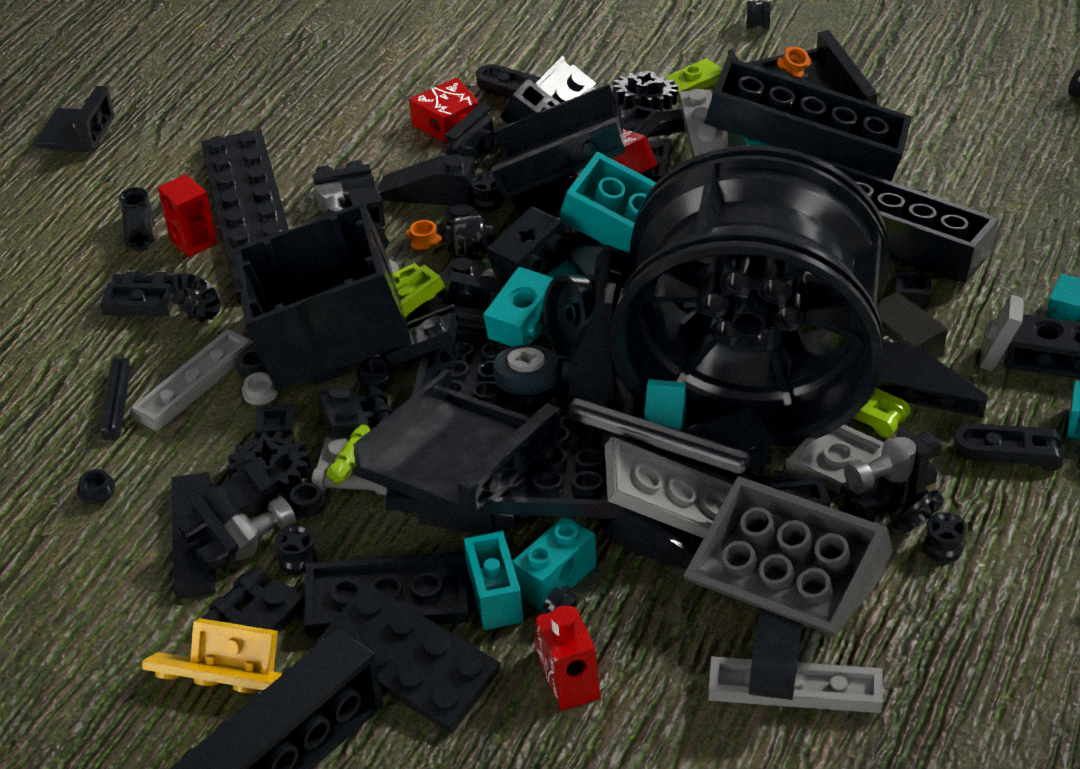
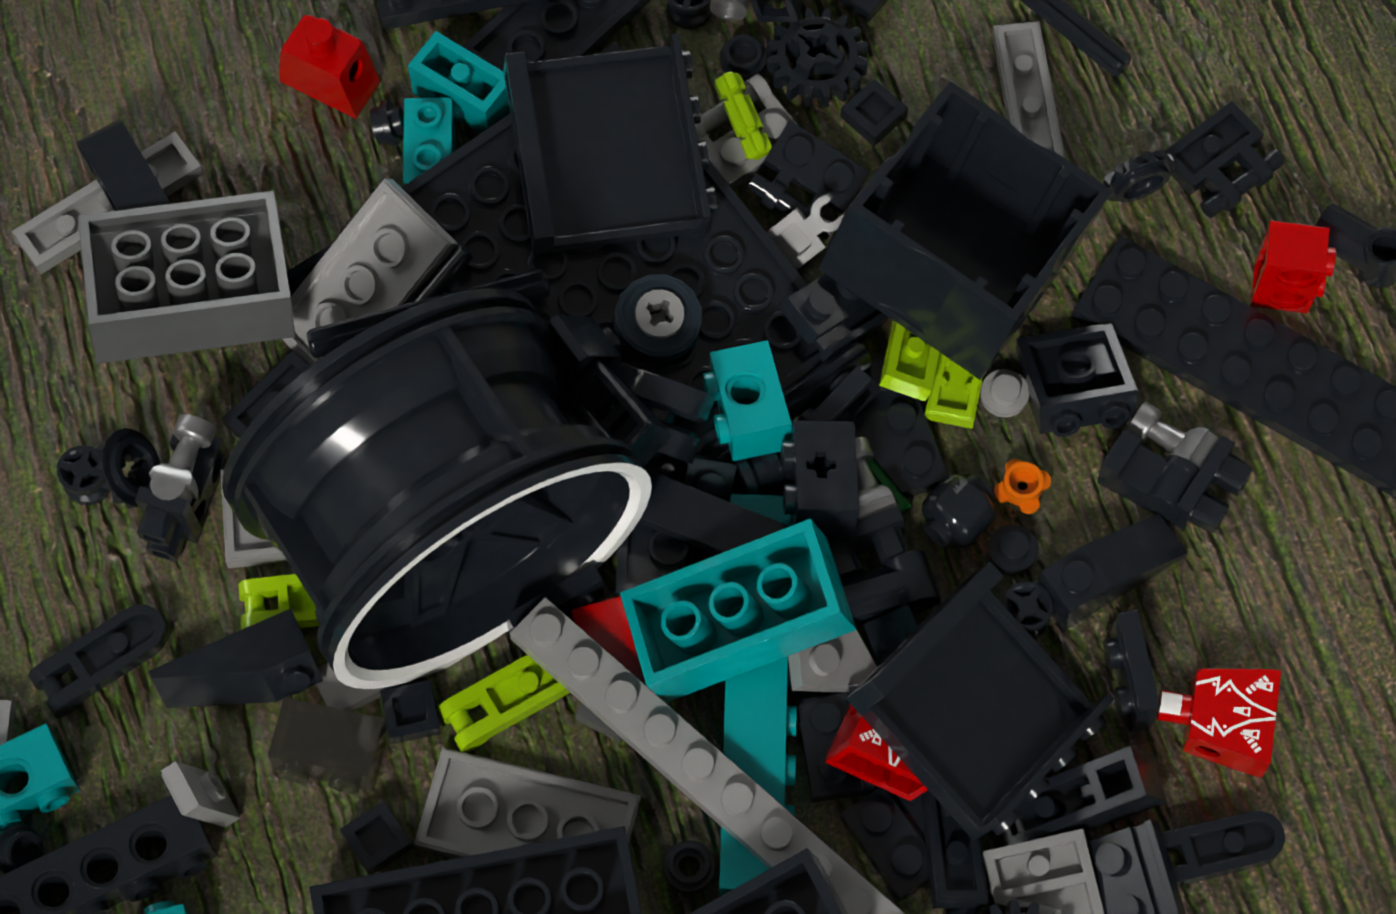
camera: 135 degrees right, 25 degrees up
(393, 384) = (799, 236): none -> light grey plate

